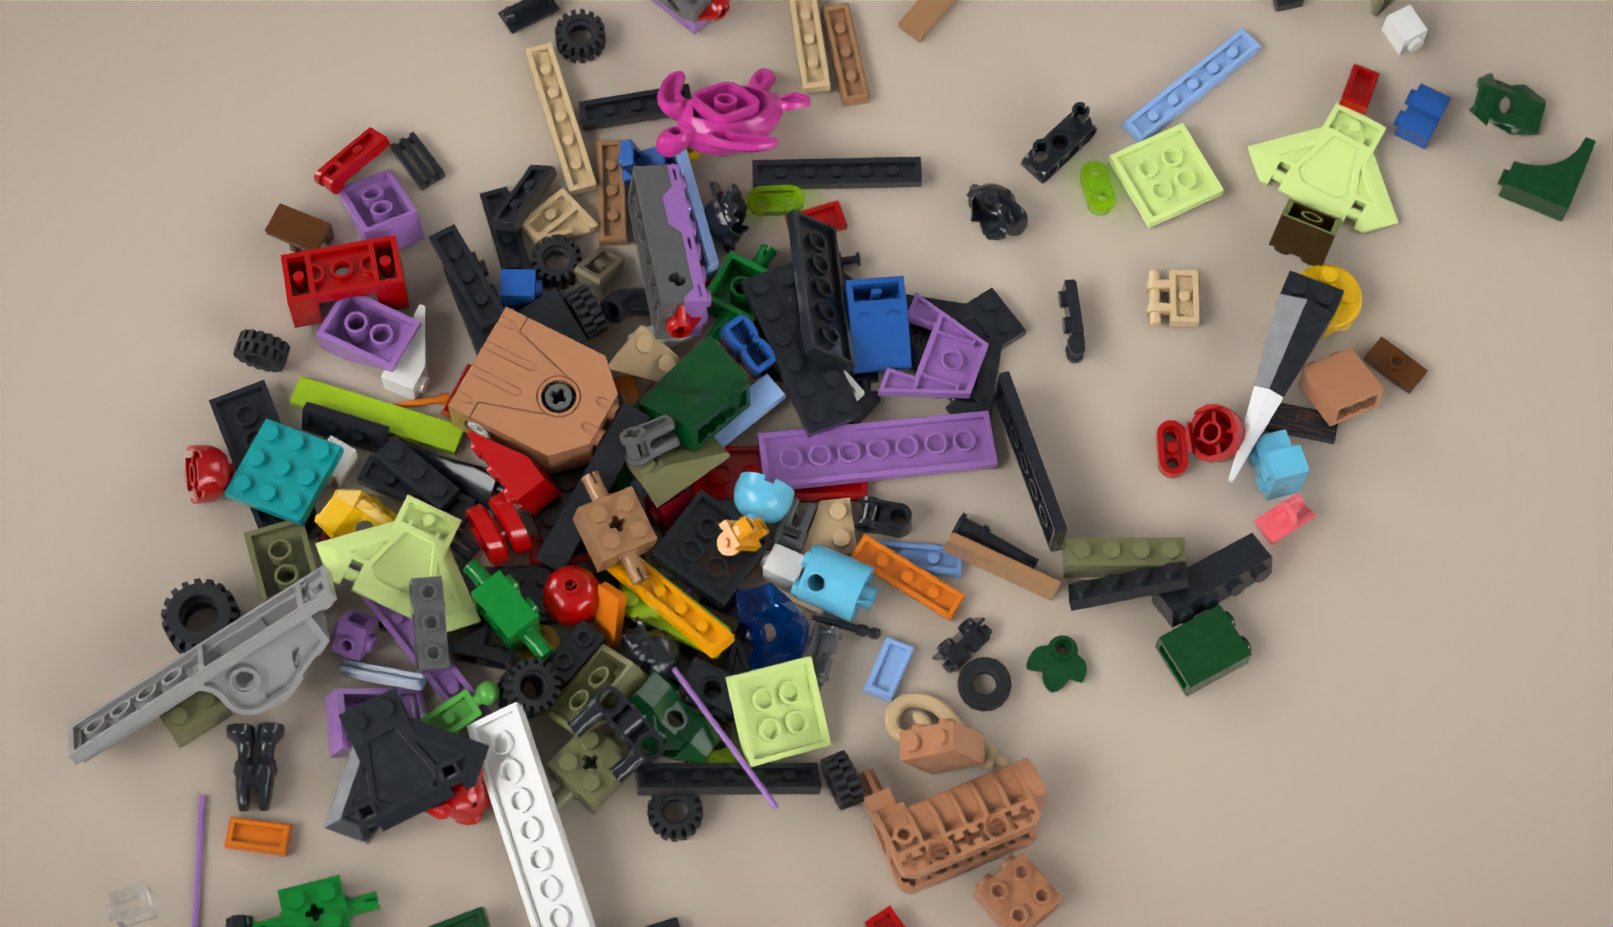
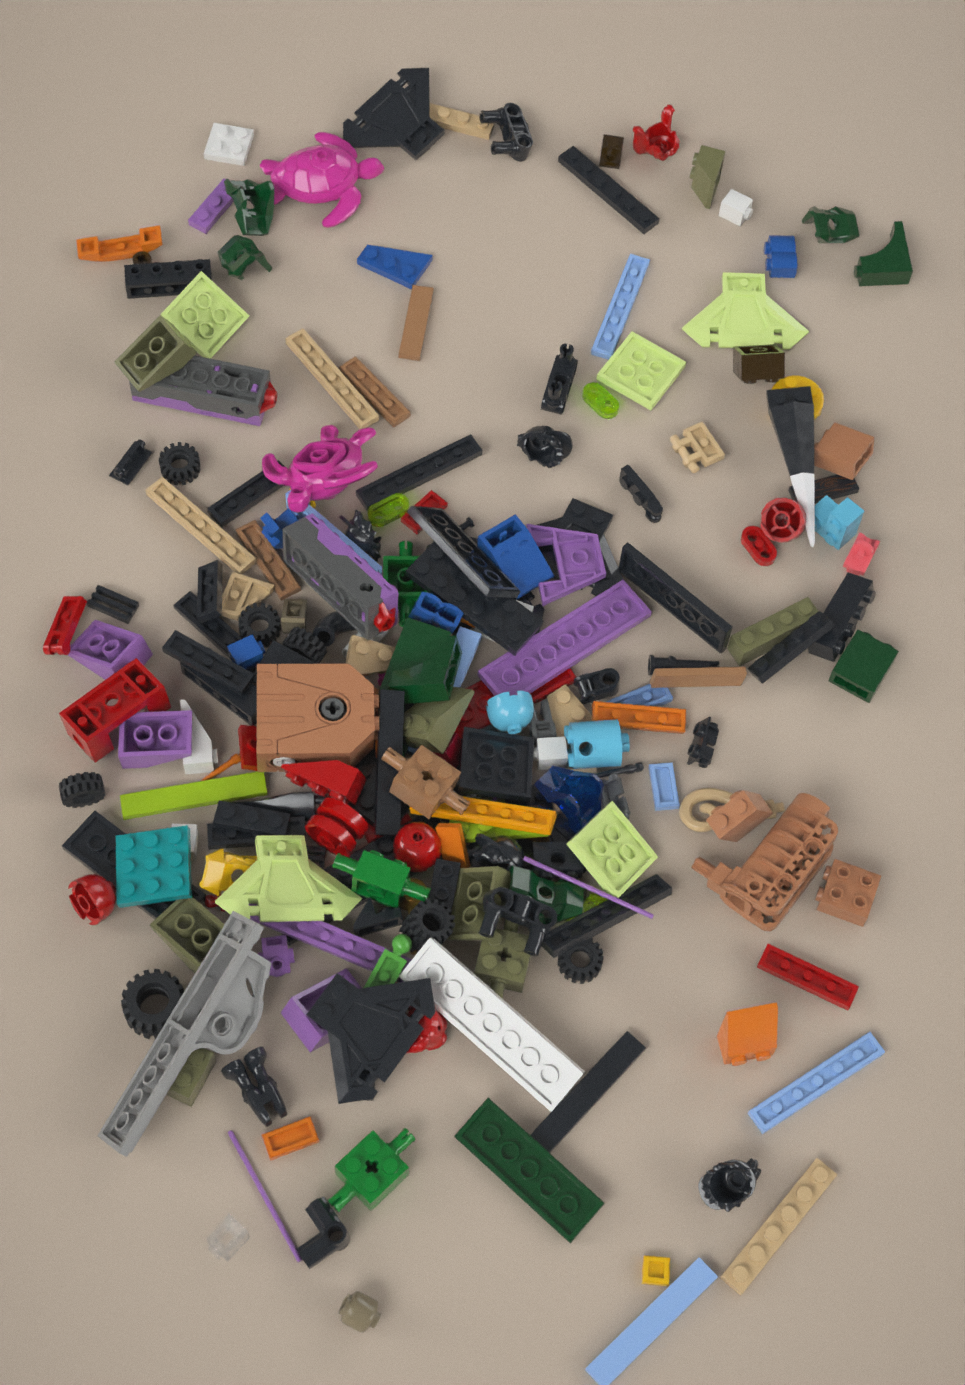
camera: 30 degrees left, 5 degrees down
(299, 229) = (56, 691): reddish brown panel -> none
(344, 427) = (182, 812): black plate -> none
(383, 675) = (313, 973): sand blue axle -> none
(429, 624) = (332, 916): dark grey brick -> none
(649, 440) = (414, 707): dark grey piece -> none
(741, 535) = (514, 743): light orange hips -> none
(842, 780) = (684, 875): black tyre -> none
(984, 666) = (736, 749): black tyre -> none
(1057, 668) = (774, 727): dark green plate -> none
(1359, 88) = (731, 257): red tile -> none
(1395, 365) = (866, 422): reddish brown plate -> none

